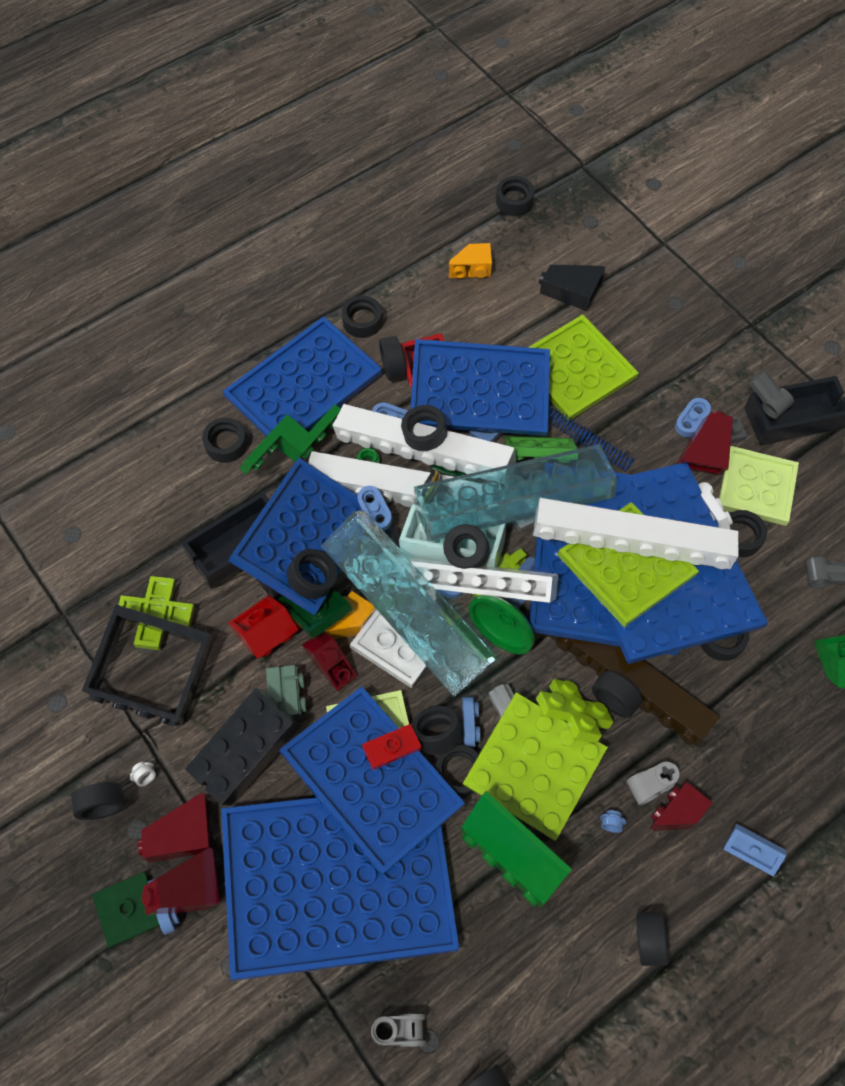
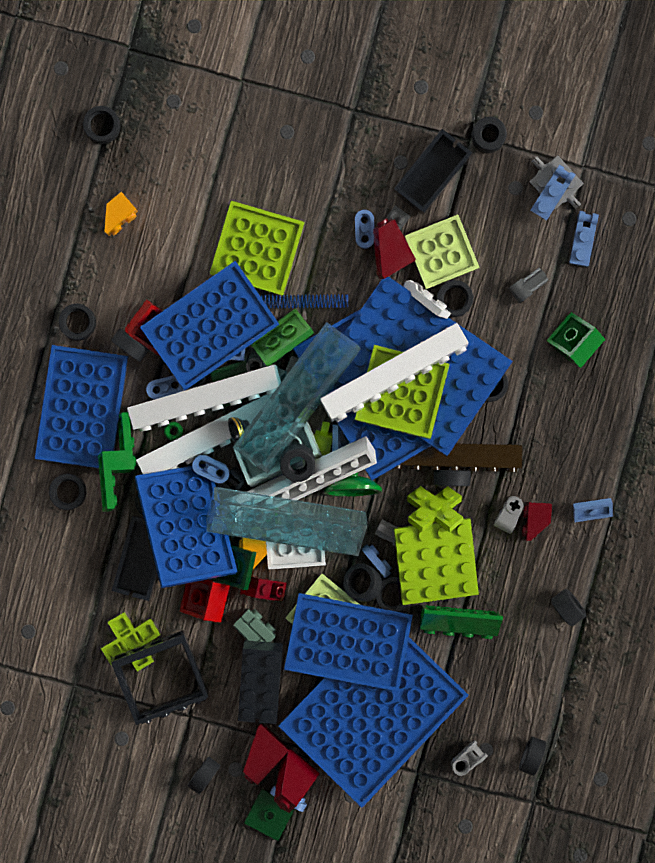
camera: 35 degrees left, 25 degrees up
(143, 773) = (212, 739): white plate -> none
(323, 562) = (223, 540): black tyre -> none
(391, 747) = (346, 617): red plate -> none
(418, 414) = (187, 393): black tyre -> none
(572, 283) = (204, 177): black slope -> none
(612, 821) = (501, 555): medium blue plate -> none
(774, 398) = (411, 184): dark grey piece -> none

